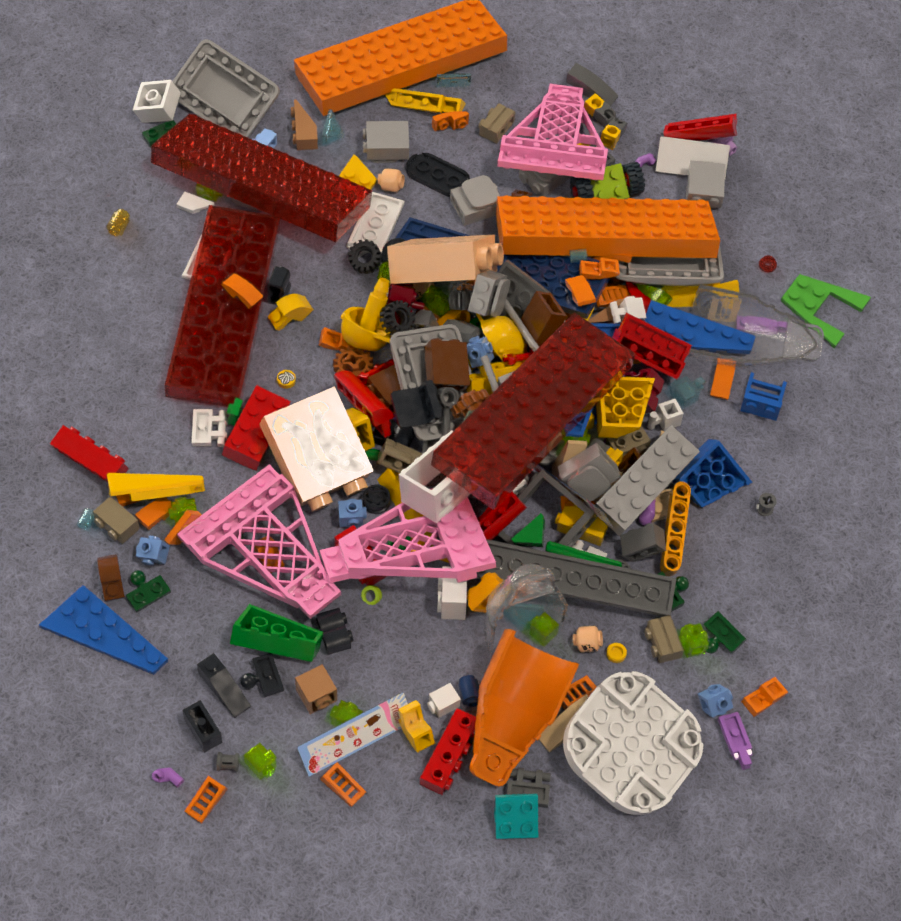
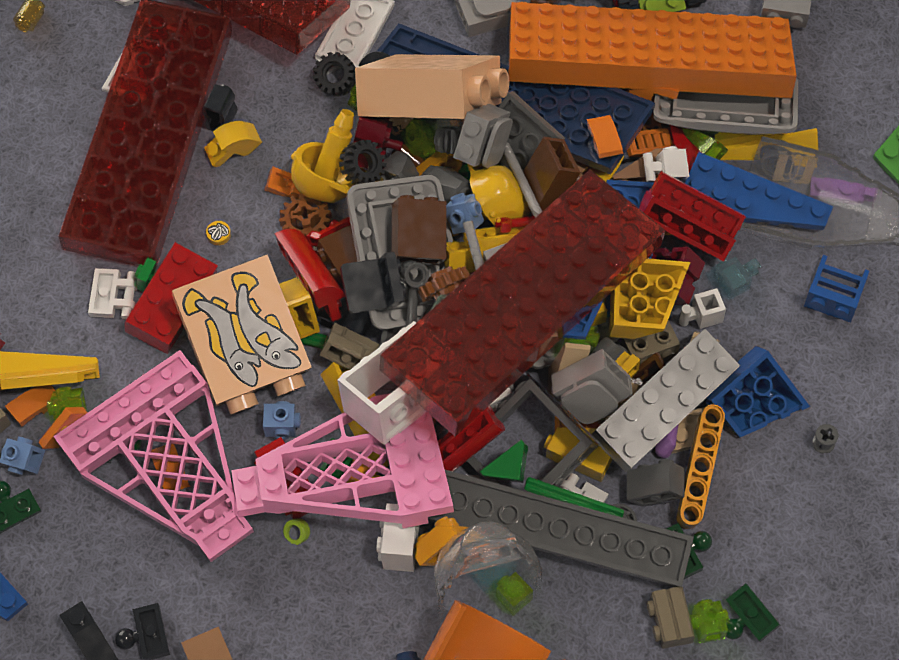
camera: 10 degrees right, 5 degrees up
(243, 289) = (169, 112): orange slope -> none
(275, 634) = (164, 580): green wedge -> none
(335, 634) = (241, 578): black brick -> none
(377, 499) = (315, 403): black wheel -> none
(578, 255) = (608, 87): clear light blue hinge -> none
(588, 639) = (570, 610): light nougat head -> none
(604, 269) = (629, 109): orange slope -> none
(616, 652) = (607, 630): yellow tile -> none
(722, 381) = (784, 266): orange slope -> none
(767, 260) = (863, 102): clear red plate -> none

